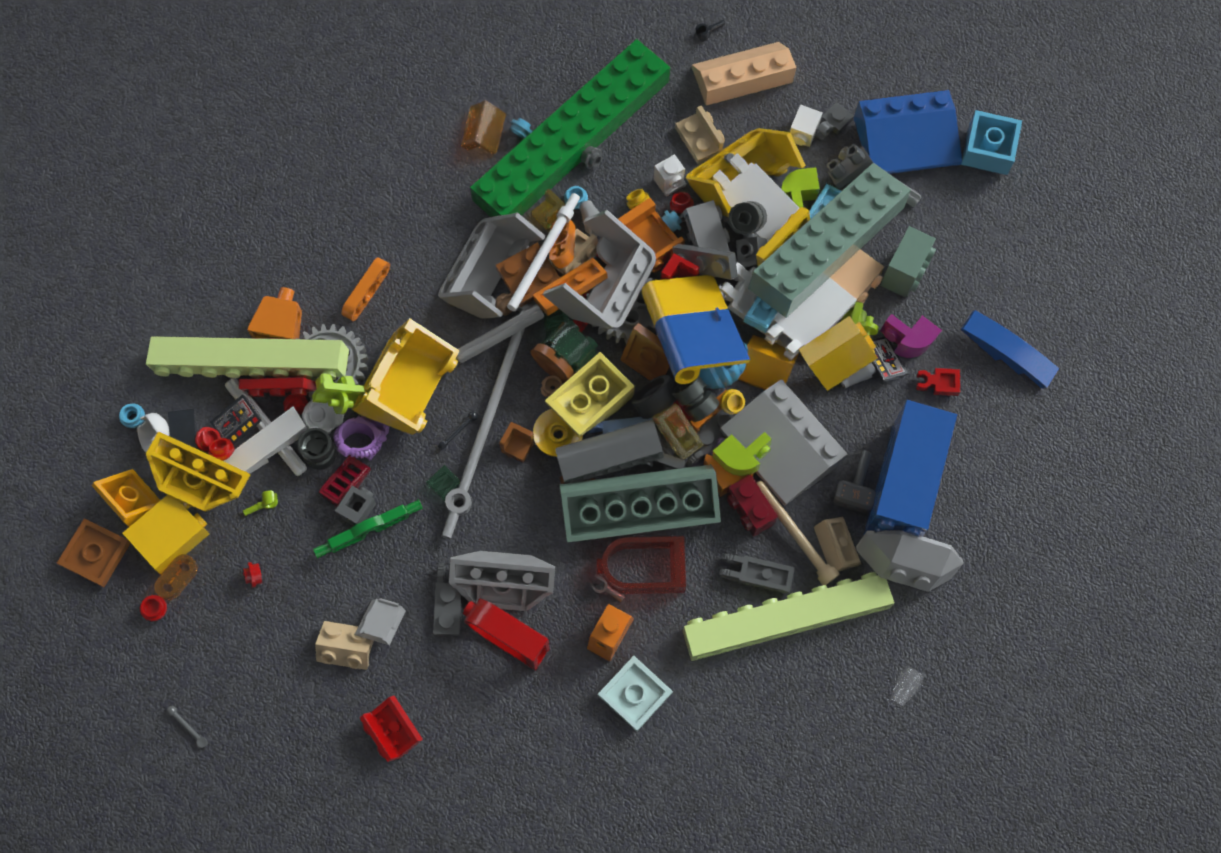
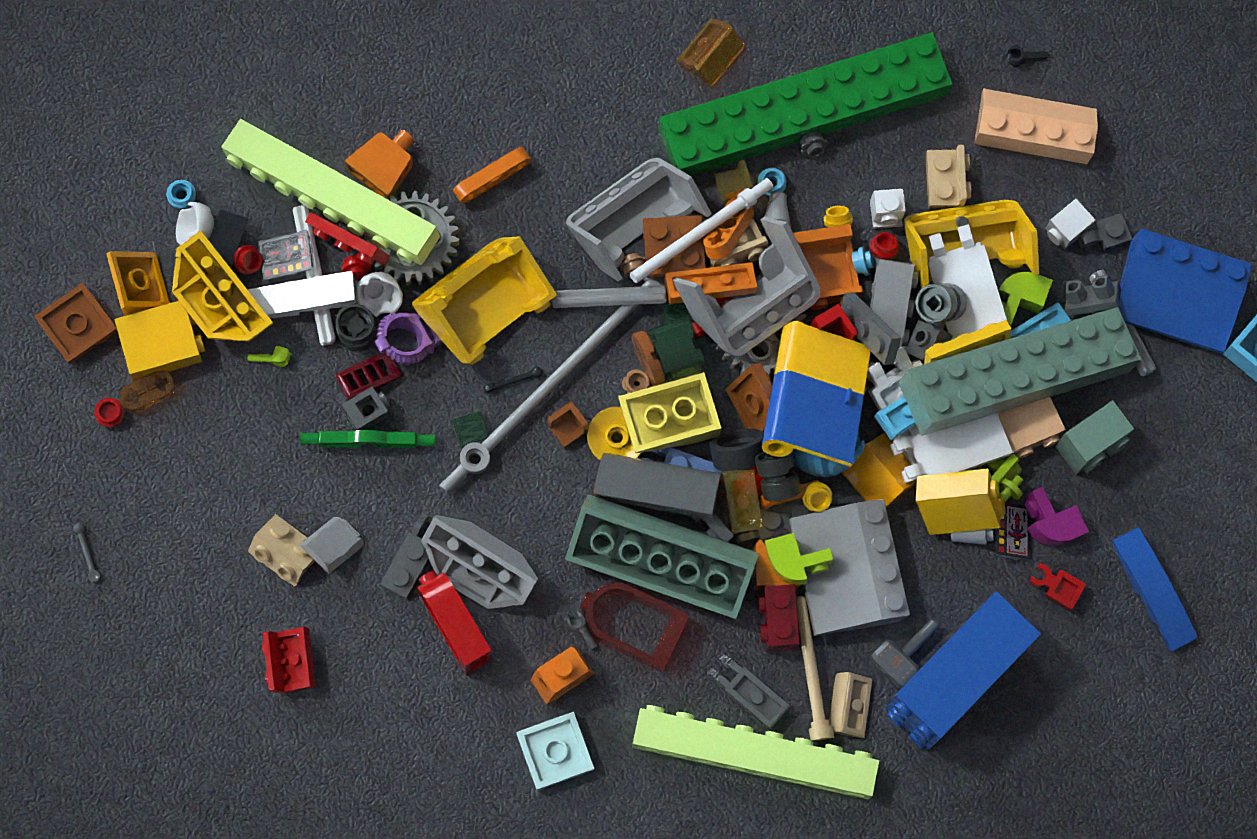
camera: 20 degrees right, 5 degrees up
(221, 449) = (256, 278): red plate -> none
(252, 574) = (225, 428): red plate -> none
(338, 395) = (404, 284): lime hips -> none
(520, 128) = (752, 72): medium azure plate -> none
(909, 558) = (913, 760): light grey wedge -> none

